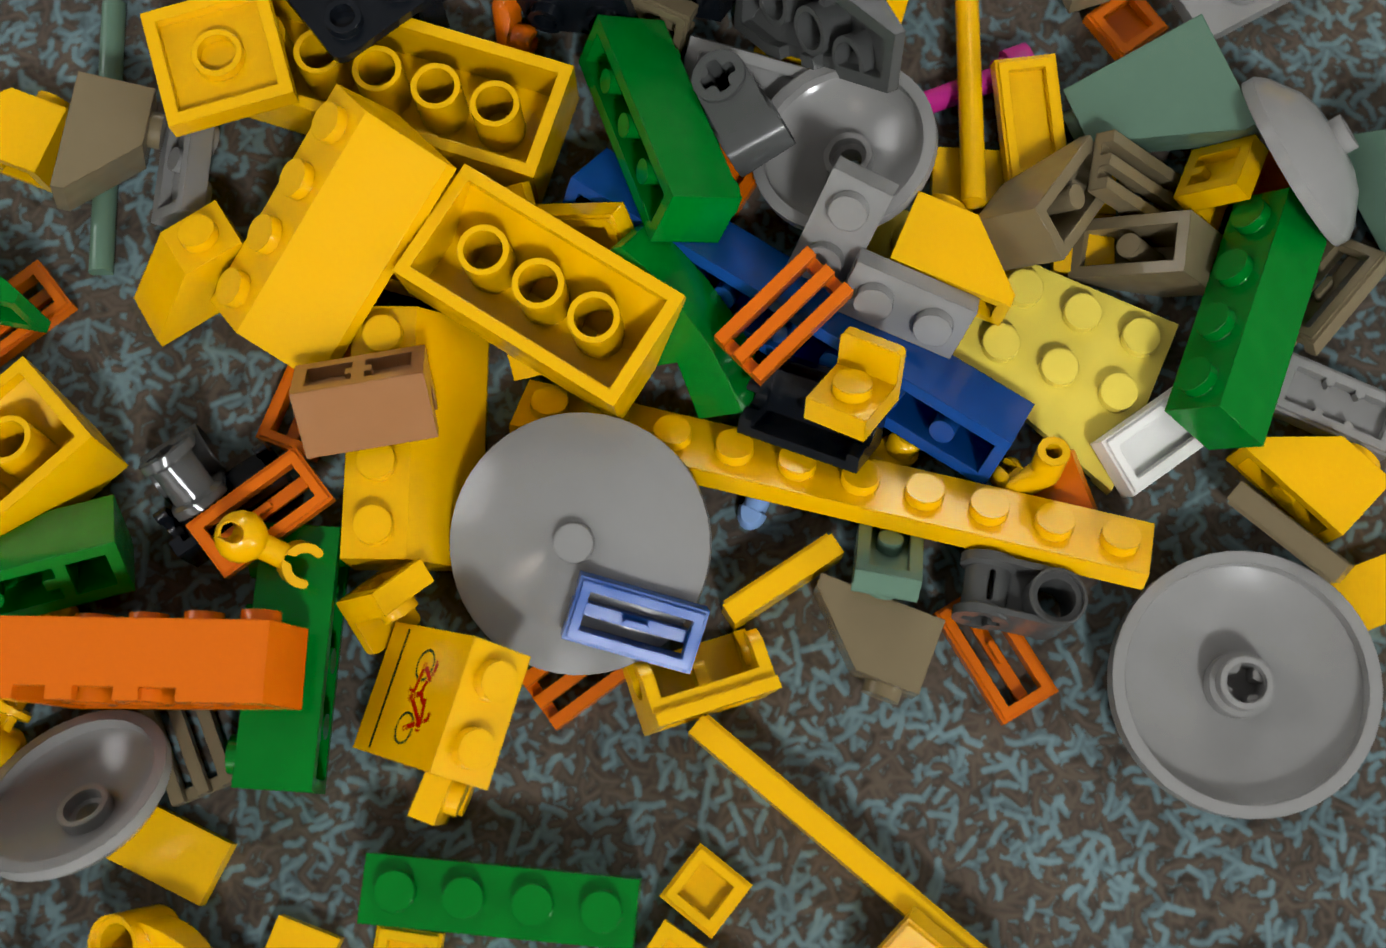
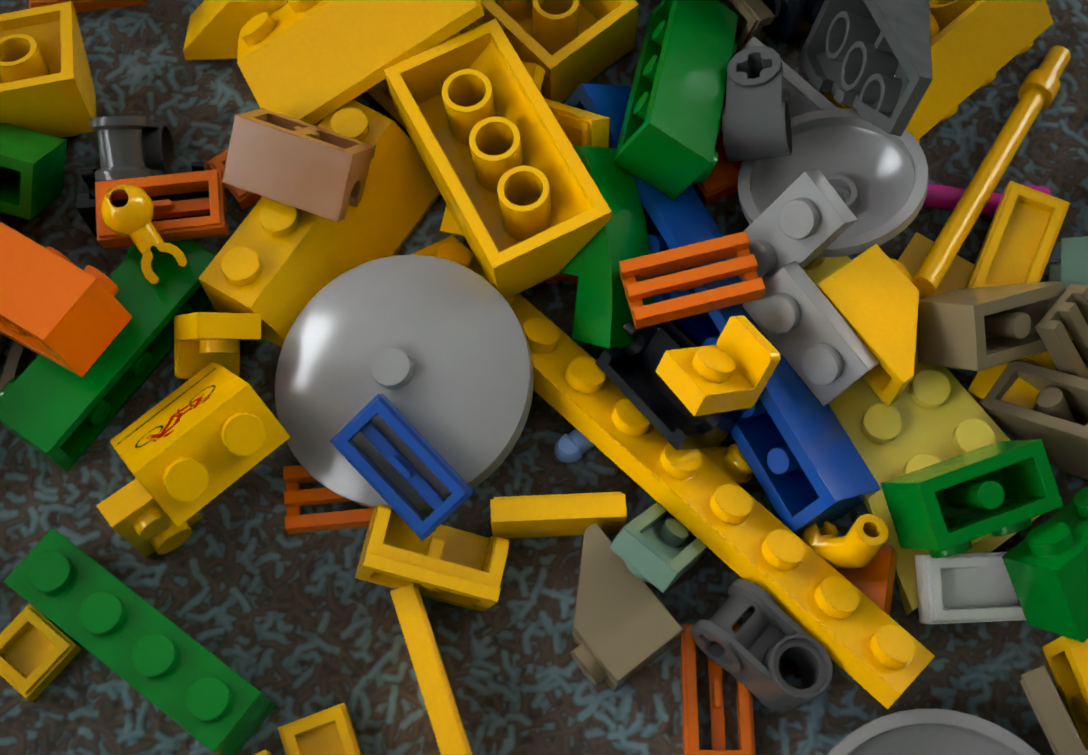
camera: 30 degrees right, 10 degrees down
(1114, 373) = (972, 496): none -> green brick

